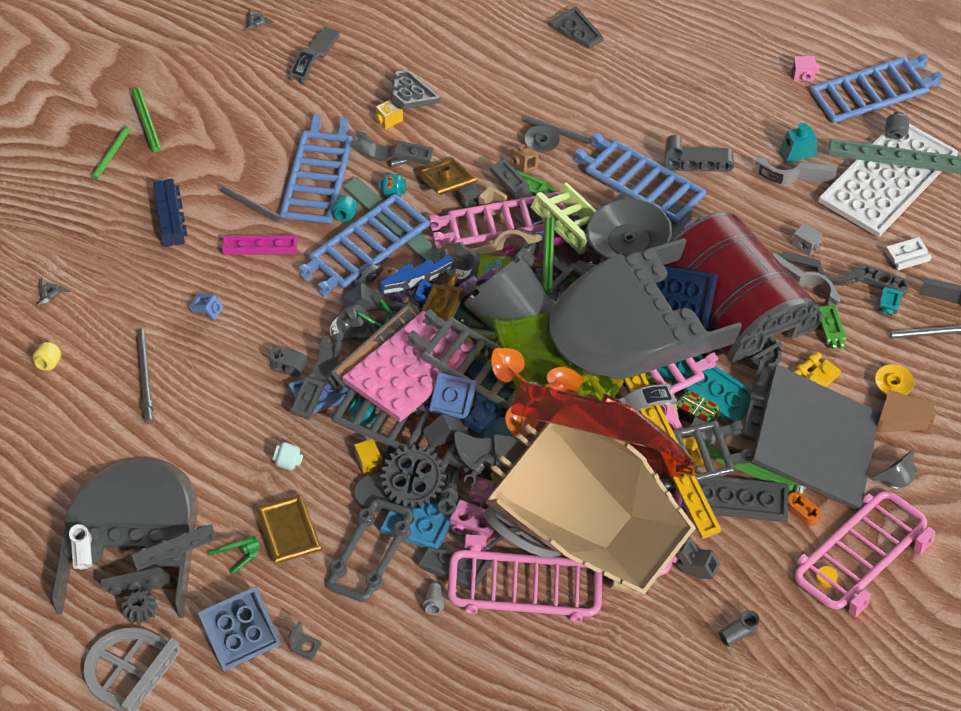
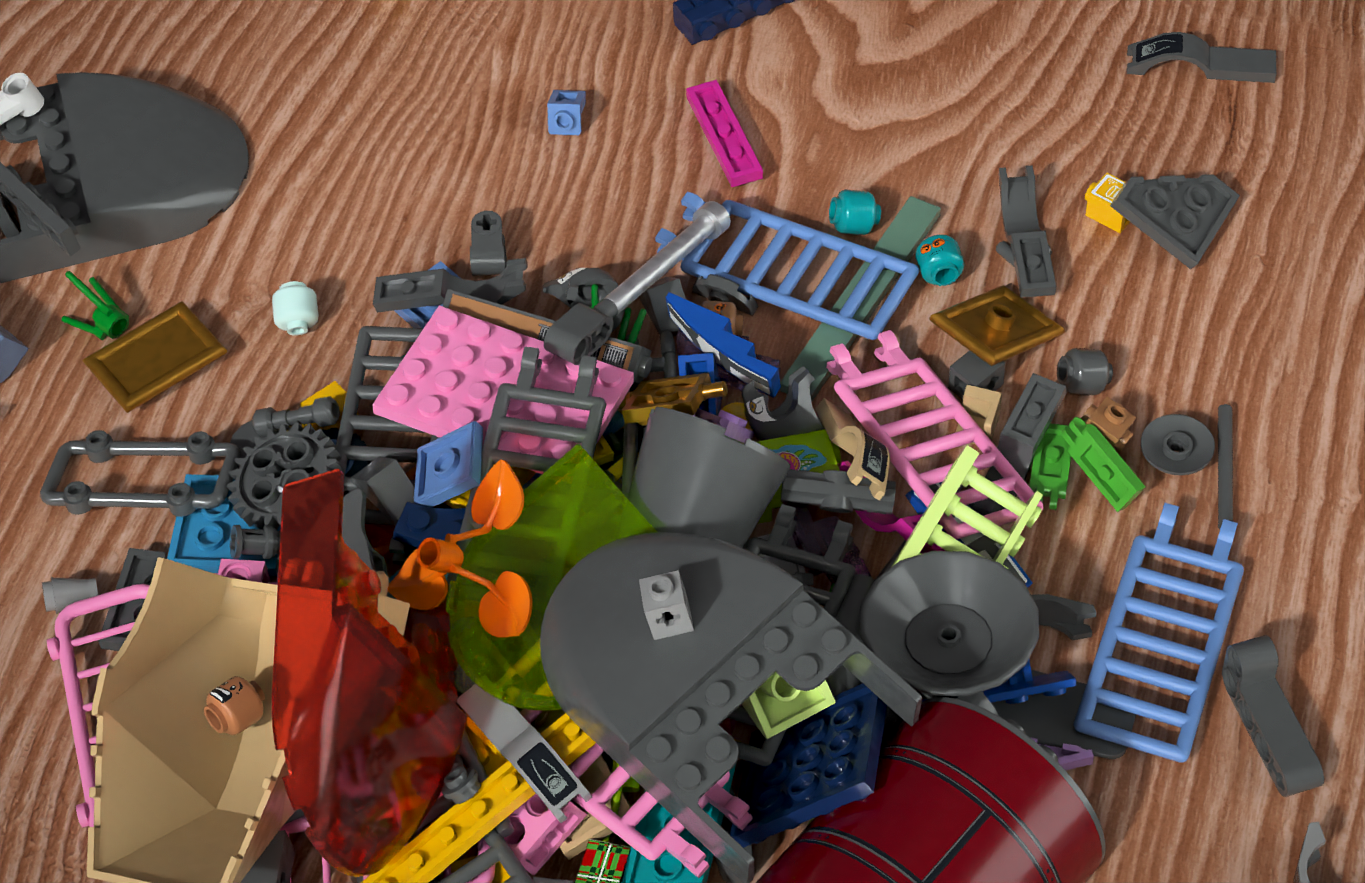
camera: 75 degrees right, 0 degrees up
(147, 404) = (343, 111): flat silver bar -> none
(253, 205) = (812, 94): flat silver bar -> none
(295, 173) = (1032, 116): medium blue bar -> none
(378, 450) = (322, 412): none -> dark grey piece
(393, 316) = (587, 328): none -> piece
(485, 156) = (1084, 371): none -> dark grey head
(544, 165) = (1102, 463): none -> bright green hinge
(548, 249) = (840, 515): bright green axle -> none
(562, 517) = (234, 705): none -> nougat head
(615, 302) = (662, 595): none -> light grey brick

